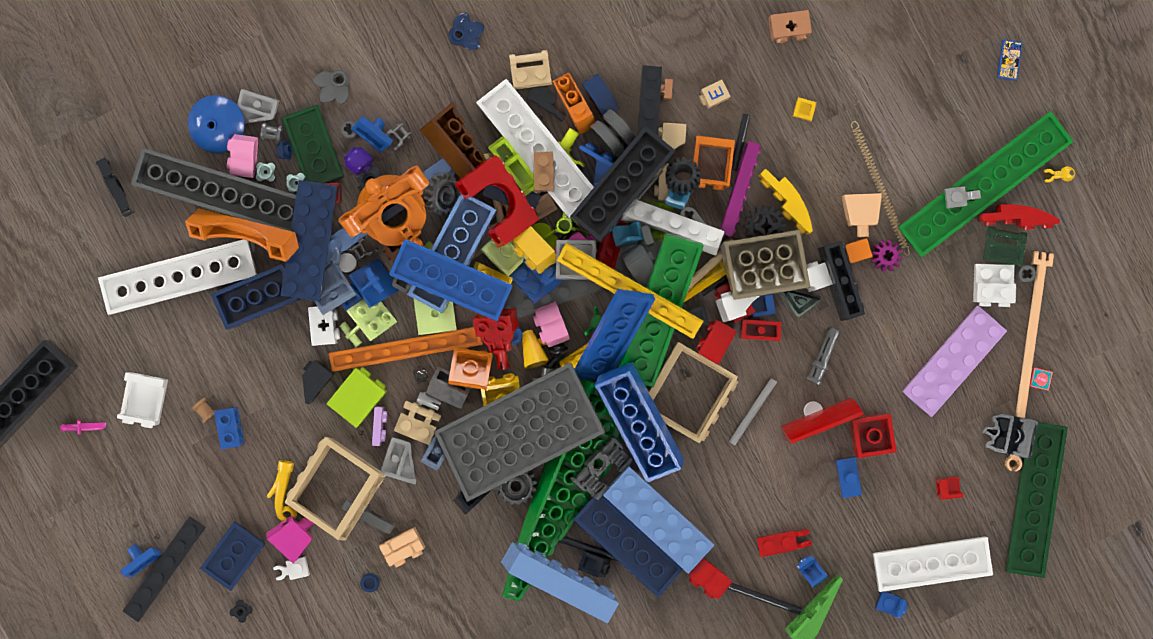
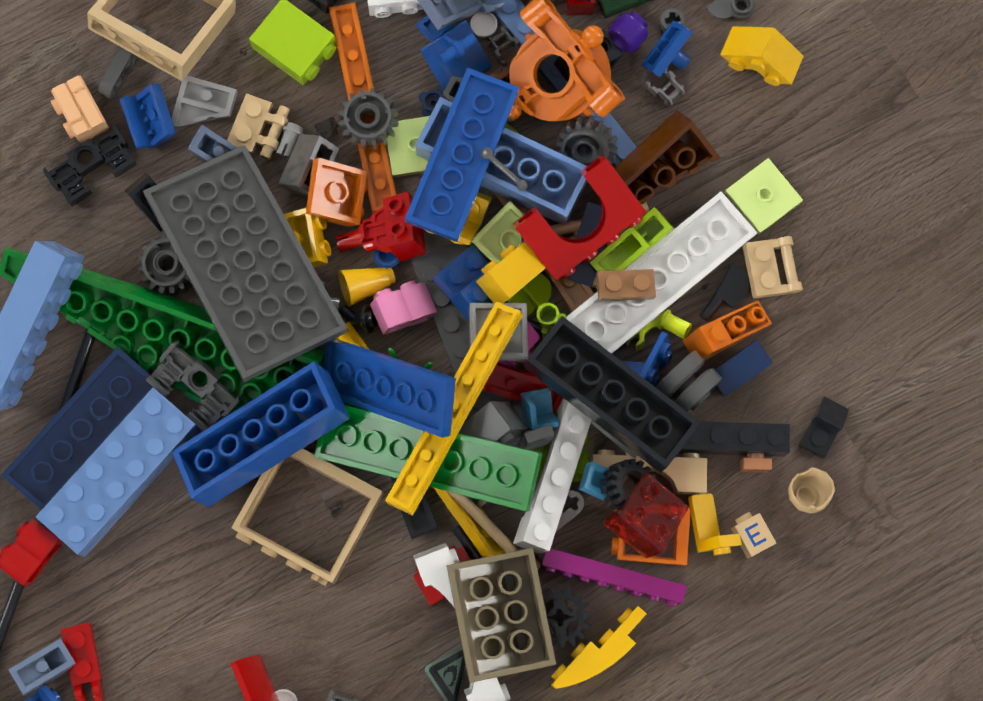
camera: 85 degrees right, 10 degrees down
(370, 582) = (29, 68): dark blue plate -> none
(371, 321) = (401, 52): yellowish green plate -> none
(378, 67) = (762, 51): none -> yellow brick
(379, 434) = (243, 71): lavender plate -> none
(399, 299) = (426, 99): none -> dark blue plate
(407, 349) = (362, 105): none -> dark grey gear
(410, 498) = (148, 117): none -> blue bracket
(445, 554) = (67, 173): none -> black piece
(453, 262) = (487, 153): none -> dark grey hinge
(469, 32) = (820, 180): dark blue plate -> none
(479, 72) = (763, 196): none -> yellowish green plate
(594, 565) = (51, 382): black bracket -> none
(642, 41) = (824, 427): none -> black slope
(686, 53) = (811, 490): none -> tan hair
(704, 163) = (648, 517): none -> clear red bracket
(708, 125) = (706, 526): none -> yellow bracket
(716, 341) = (384, 549): red brick -> none
(740, 141) = (684, 577): black bar -> none
(752, 412) = (280, 610): light grey bar -> none
(760, 330) = (403, 614): red brick -> none
(763, 306) = (440, 618): blue panel -> none
(786, 568) = (42, 667): none -> sand blue slope
(799, 20) = (869, 659): nougat brick -> none
(804, 109) = (739, 673): yellow tile -> none

